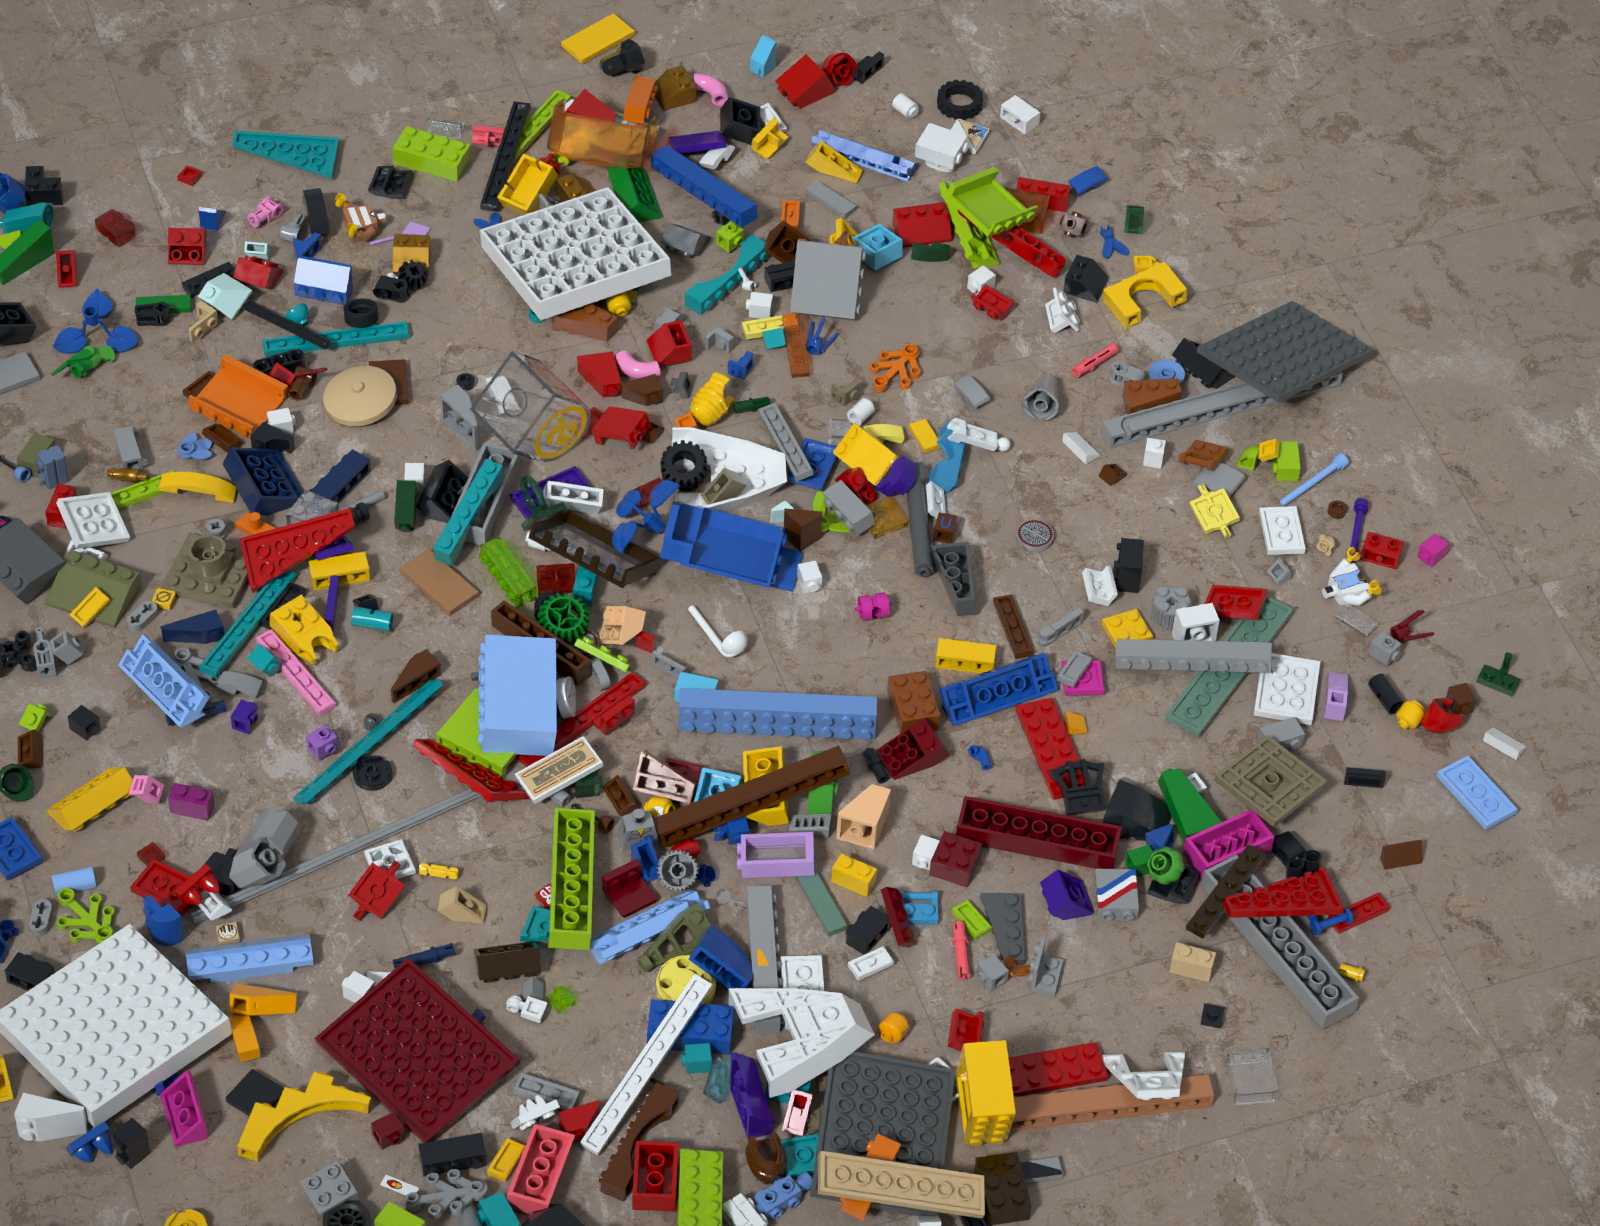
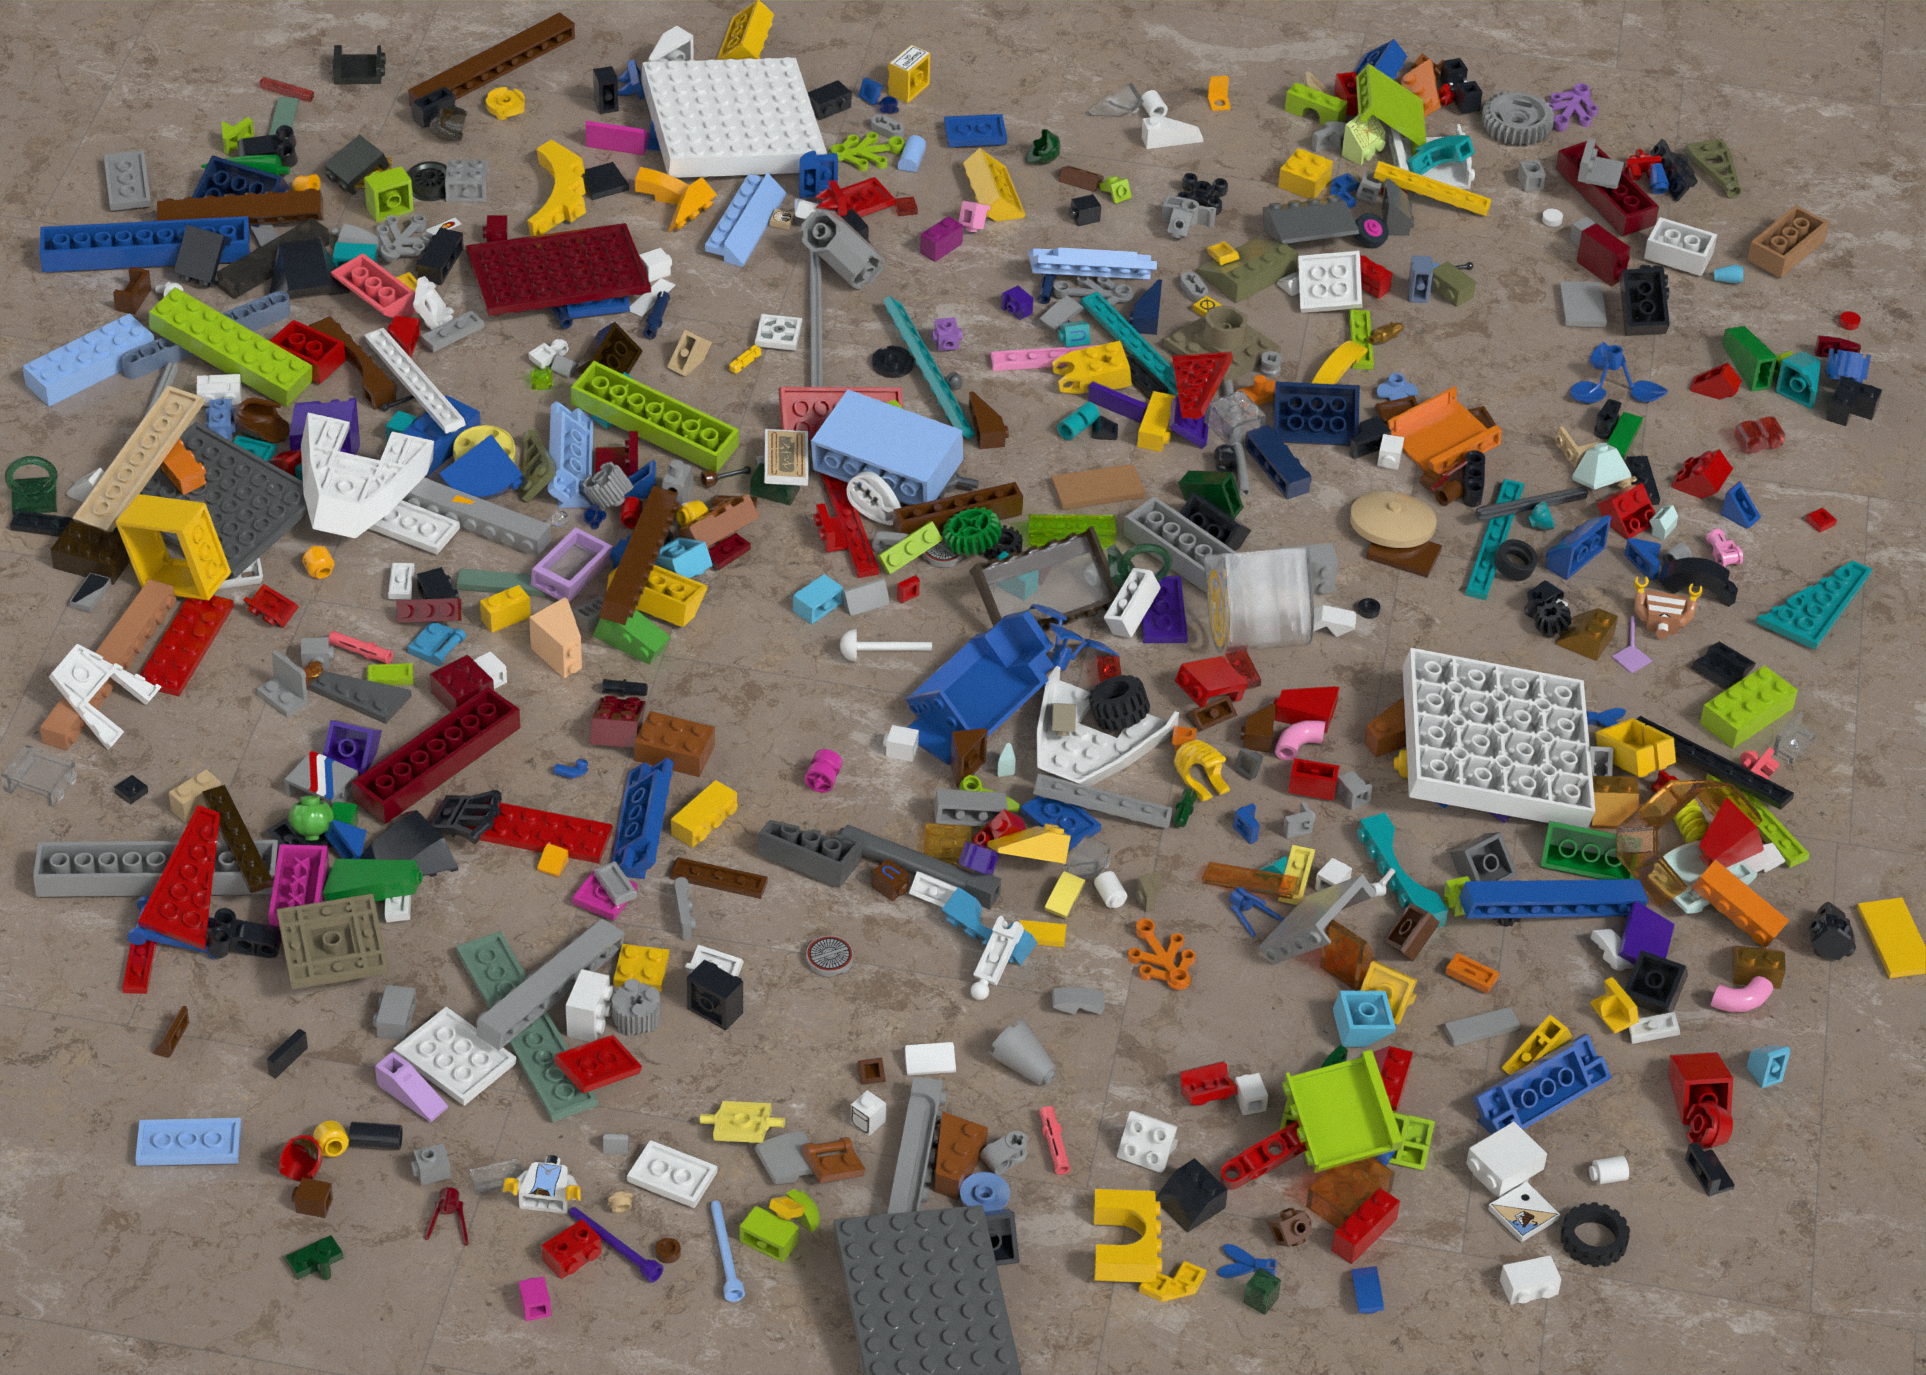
camera: 120 degrees right, 5 degrees down
(87, 359) = (1565, 354): green animal -> none
(128, 448) = (1420, 342): light grey brick -> none
(376, 890) = (748, 306): red plate -> none
(416, 473) = (1250, 514): white brick -> none
(482, 487) = (1181, 527): teal arch -> none
(621, 624) = (935, 568): light nougat slope -> none
(718, 1080) = (371, 433): clear light blue plate -> none
(777, 713) = (733, 633): medium blue brick -> none
(780, 276) = (1370, 920): black brick -> none
(1352, 972) = (78, 915): yellow pin -> none
(1504, 743) = (229, 1208): white slope -> none

